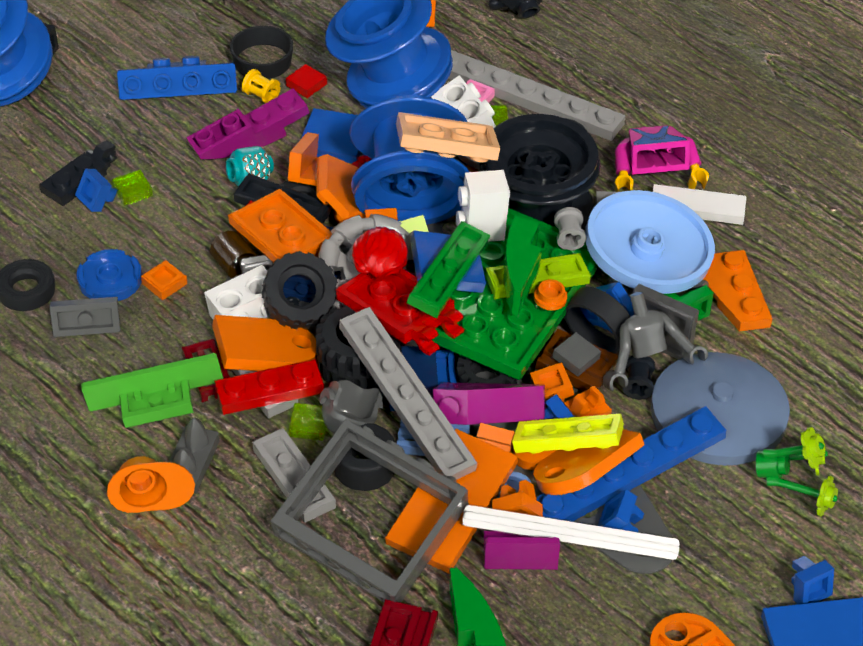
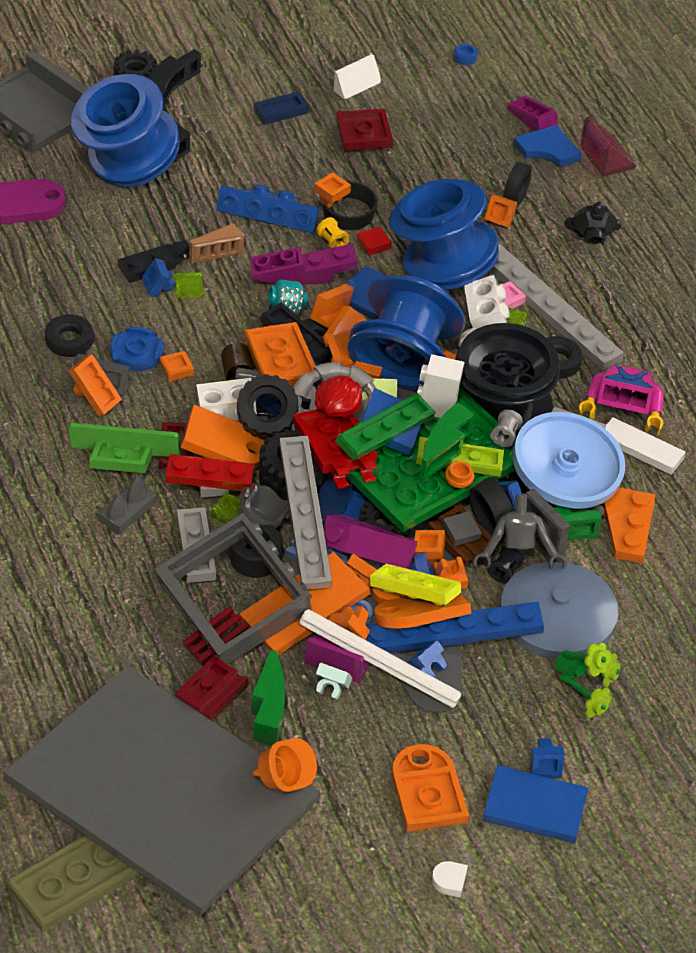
camera: 20 degrees right, 0 degrees up
(86, 330) = (94, 385): none -> orange tile
(143, 133) = (224, 241): none -> medium nougat slope
(149, 485) = (83, 515): orange piece -> none
(241, 38) = (331, 189): none -> orange tile
(388, 547) = (233, 619): none -> dark red tile
(447, 137) = (431, 321): light nougat plate -> none
(531, 574) = (333, 677): none -> light aqua tile

